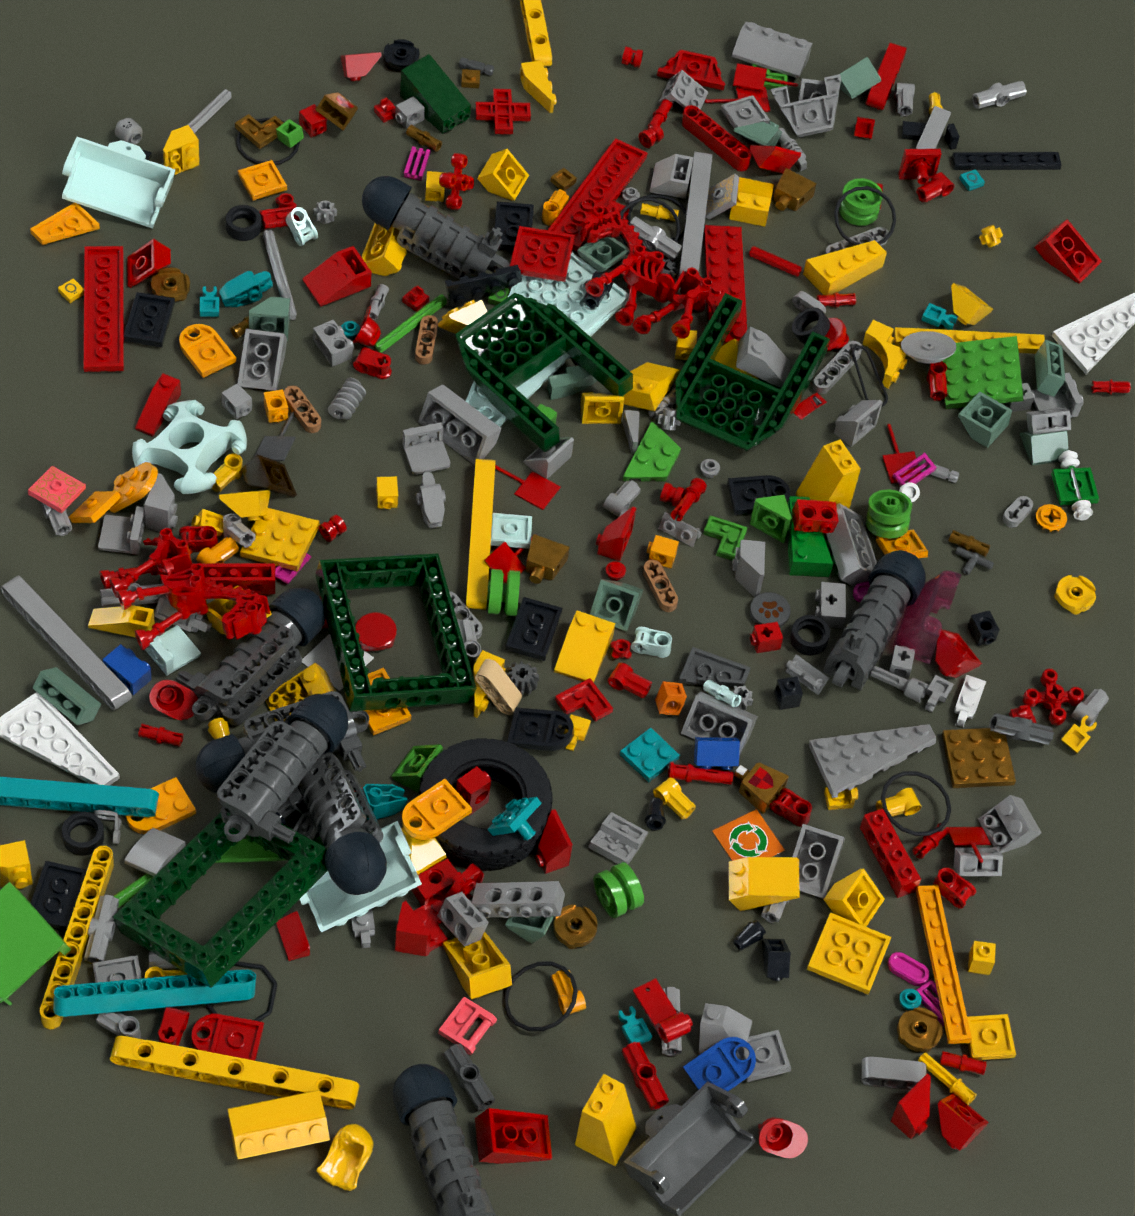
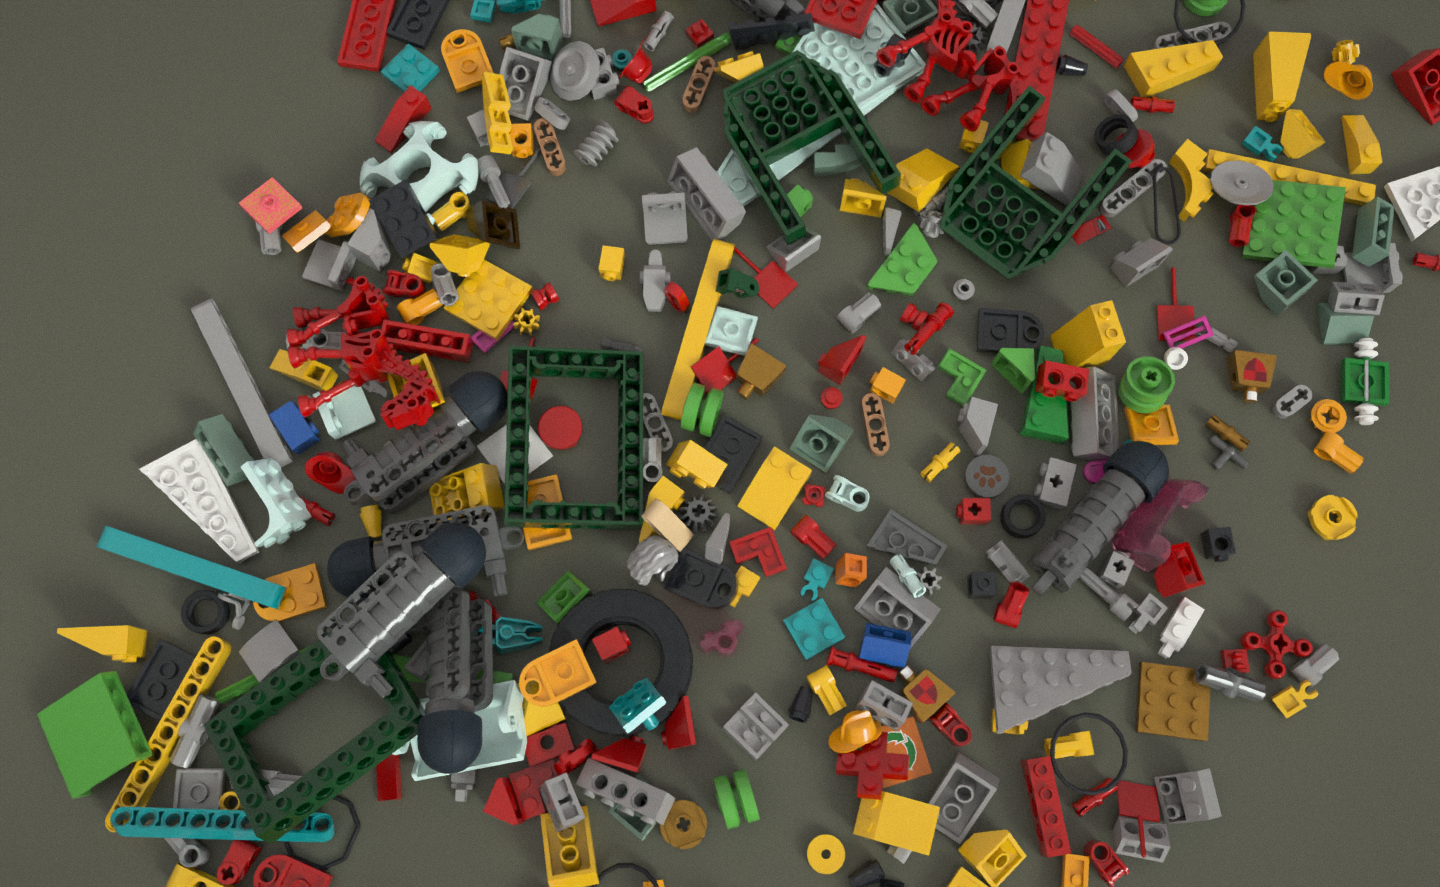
camera: 20 degrees right, 20 degrees up
(147, 738) = (284, 506): none -> light aqua bracket
(151, 364) = (410, 68): none -> teal plate
(190, 478) = (404, 219): none -> black plate
(248, 381) = (496, 114): none -> yellow slope
(255, 438) = (490, 173): none -> light grey piece
(298, 380) = (552, 113): none -> light grey beam
(311, 342) = (574, 71): none -> light grey piece
(321, 550) = (529, 316): none -> yellow gear
(455, 508) = (676, 297): none -> red beam
(493, 714) = (652, 557): none -> light grey hair
(504, 872) = (623, 753): none -> red slope
(507, 489) = (737, 282): none -> dark green leg
(510, 633) = (696, 462): none -> yellow brick
(545, 694) = (717, 541): none -> light grey slope
(571, 771) = (729, 631): none -> clear pink plate
(641, 714) = (817, 576): none -> teal plate
(708, 820) = (856, 730): none -> light orange piece
(708, 937) = (836, 858): none -> yellow piece
(726, 605) = (940, 462): none -> yellow pin
(728, 798) = (884, 705): none -> light grey brick
(731, 842) = (873, 766): none -> red plate
(756, 279) = (1070, 66): none -> black cone
(818, 707) = (1010, 609): none -> red piece
(936, 257) = (1278, 72): none -> yellow slope
(976, 493) = (1250, 373): none -> pearl gold torso
(999, 256) = (1349, 79): none -> light orange piece
(1023, 306) = (1361, 145): none -> yellow slope
(1060, 540) = (1332, 449): none -> light orange piece

